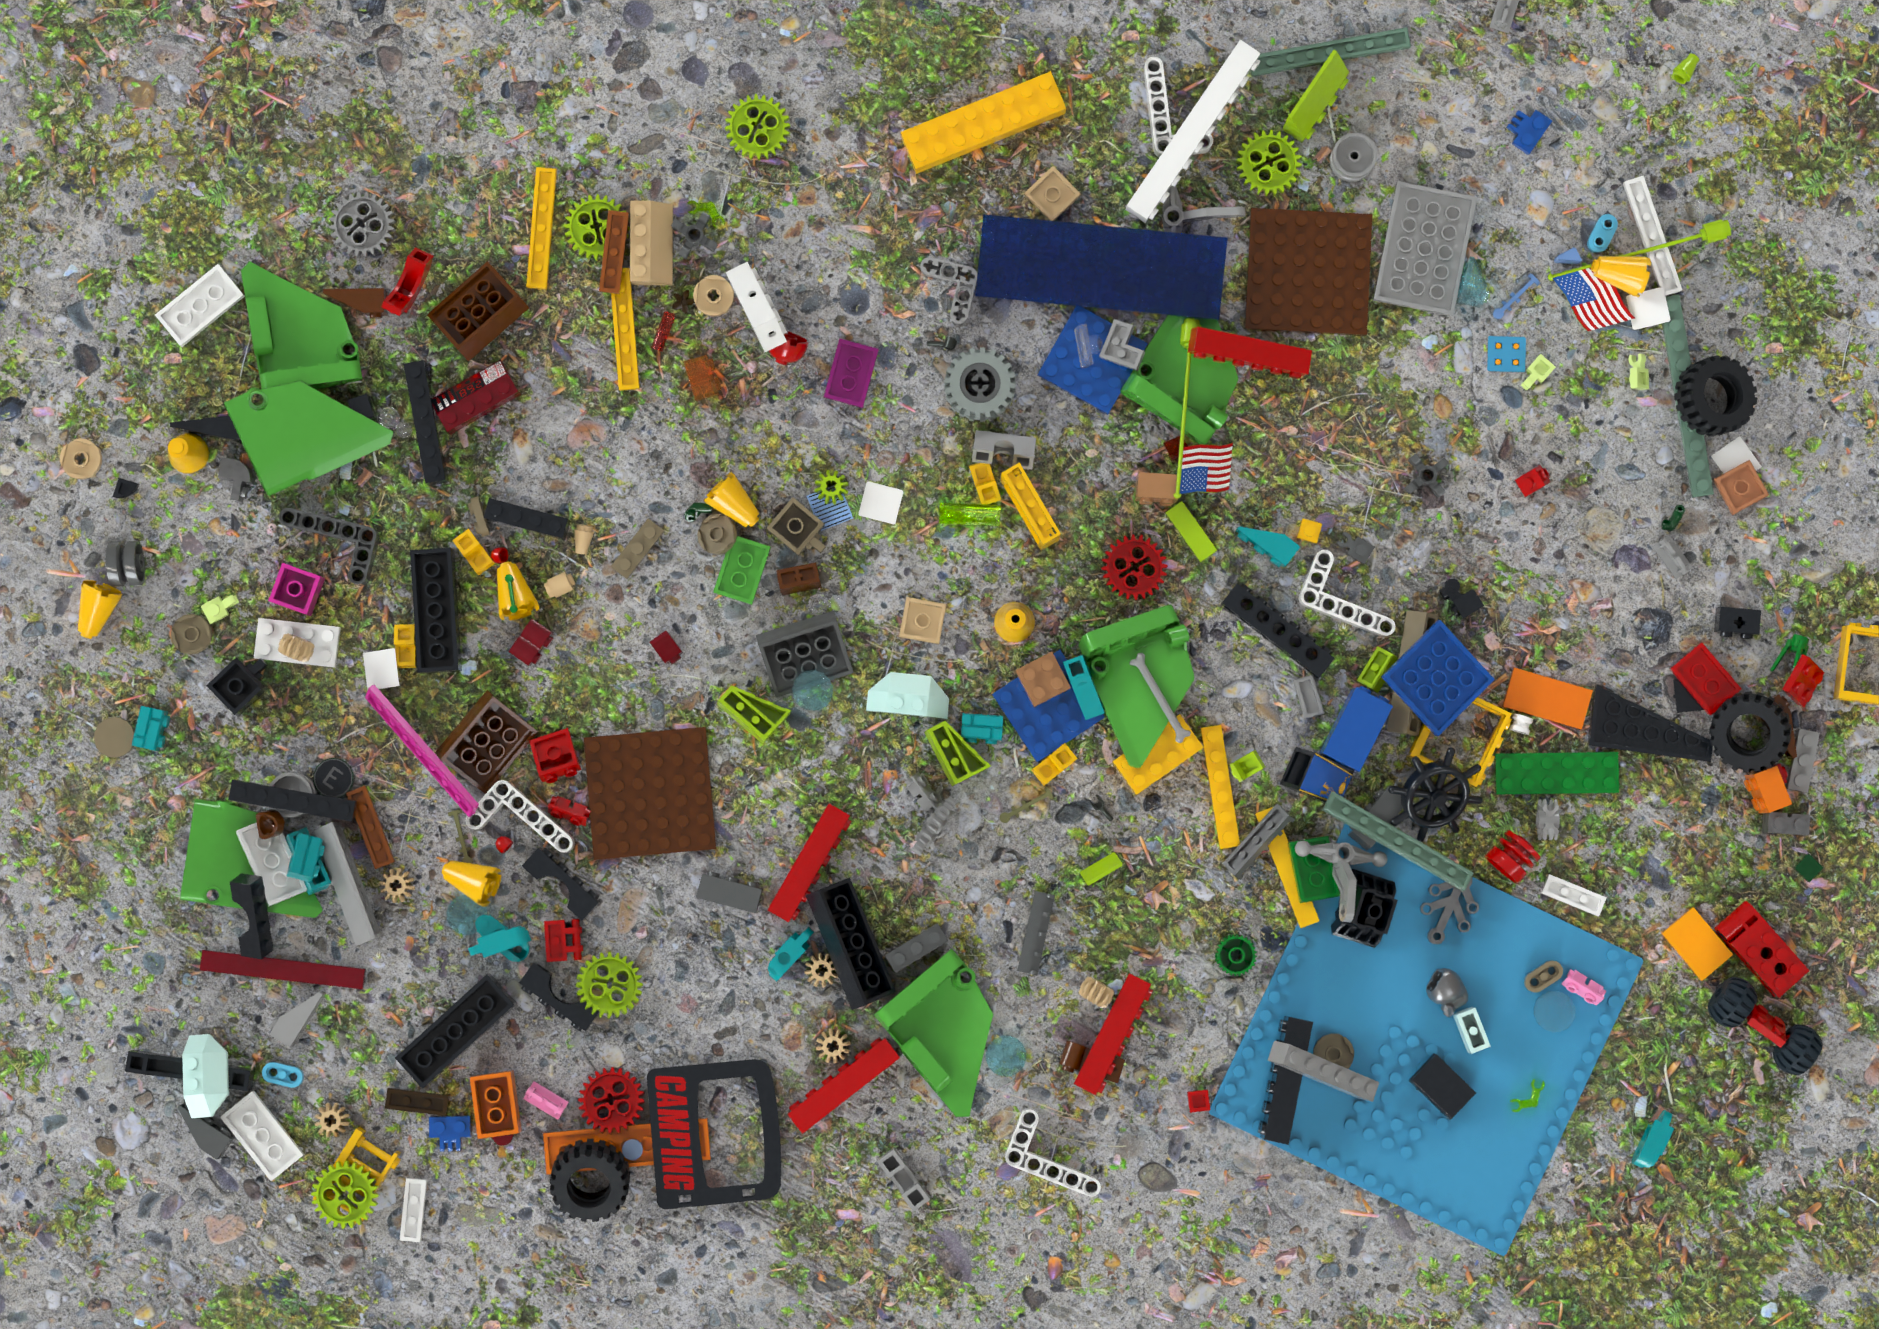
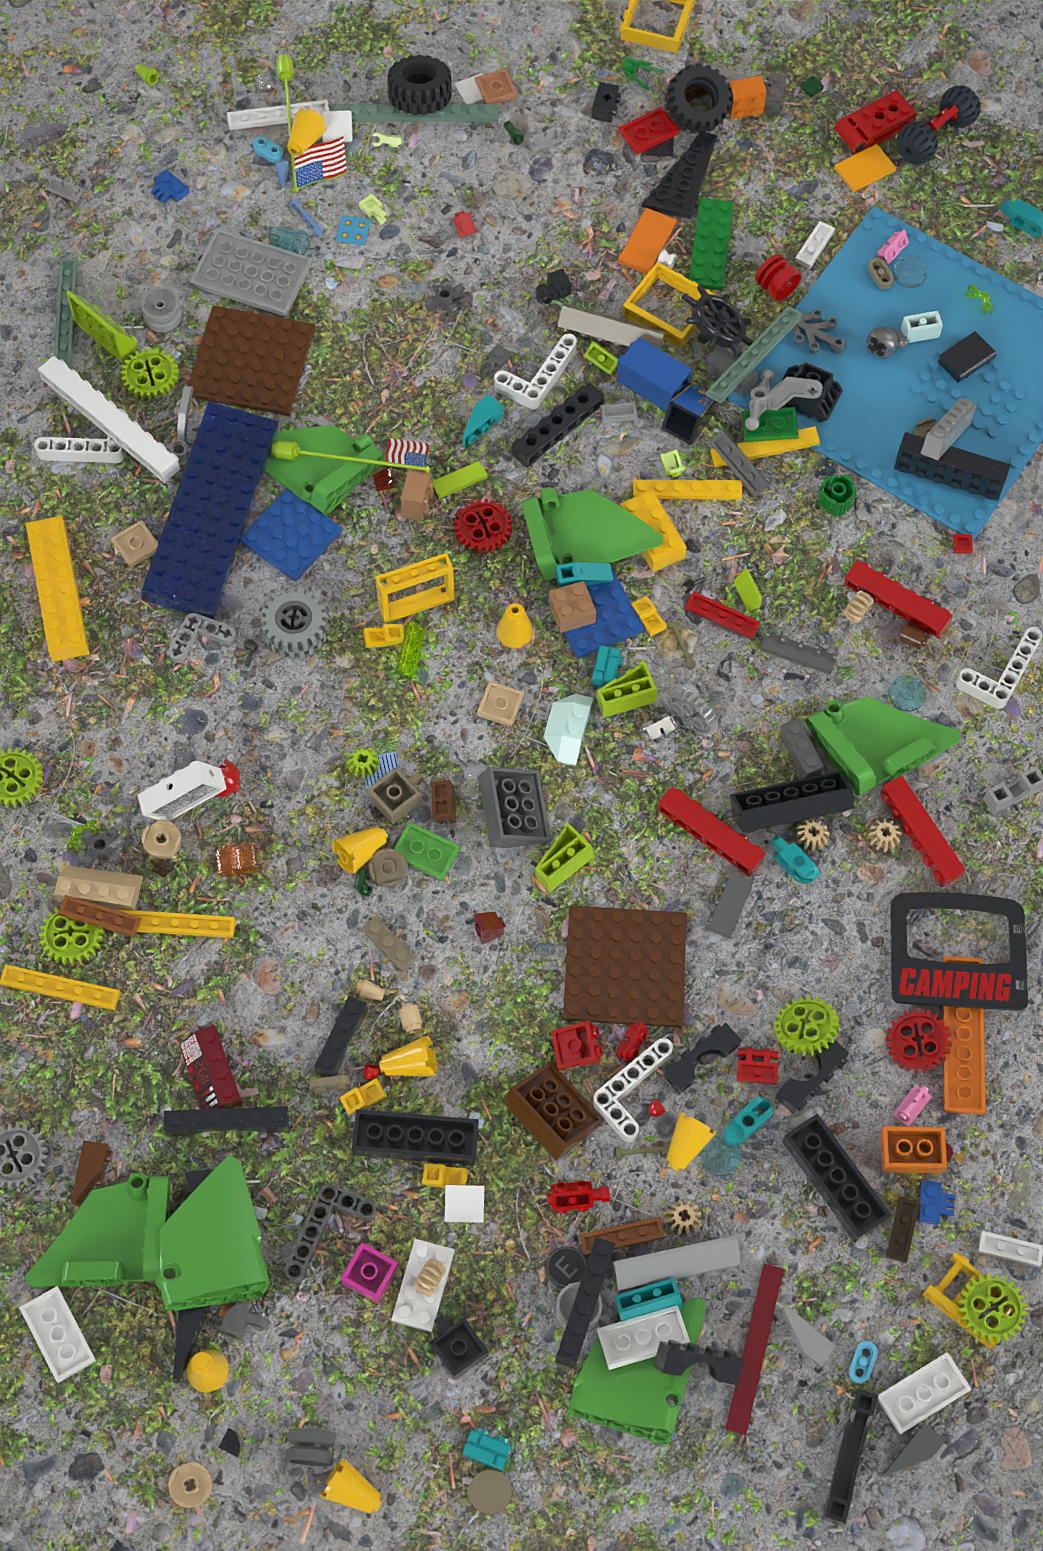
camera: 85 degrees left, 20 degrees down
(191, 634) = (395, 1394): dark tan tile -> none
(204, 1075) = (857, 1436): light aqua wedge -> none
(217, 609) = (374, 1362): yellowish green plate -> none
(269, 824) = (606, 1328): reddish brown piece -> none
(305, 857) = (646, 1294): teal brick -> none
(335, 1127) = (905, 1317): tan gear -> none
(403, 429) = (215, 1156): clear plate -> none
(403, 775) = (576, 1195): none -> red brick
(410, 282) = (82, 1116): red arch -> none
(421, 750) = (552, 1169): dark pink tile -> none
(478, 311) = (126, 1056): reddish brown slope -> none
(500, 941) = (754, 1115): teal piece -> none
(509, 579) = (397, 1056): green hinge -> none
(531, 642) = (462, 1052): dark red brick -> none
(585, 1204) = (1016, 1059): black tyre -> none
(632, 1149) = (968, 1026): sand blue tile -> none
(663, 331) = (185, 889): clear red axle -> none
(812, 690) = (549, 805): clear light blue tile -> none
(851, 373) = (260, 731): magenta plate -> none
(880, 502) = (385, 726): white sticker -> none
(989, 444) = (351, 625): light grey arch -> none
(1066, 844) = (722, 615): none -> red plate
(1087, 345) = (278, 530): clear tile -> none
(1116, 348) = (286, 507): light grey plate -> none
(1140, 663) = (569, 528): light grey piece -> none
(1249, 351) = (311, 405): red brick -> none
(1309, 531) = (475, 391): yellow plate -> none
(1437, 678) = (619, 303): blue plate -> none
(1803, 681) = (659, 61): red plate -> none

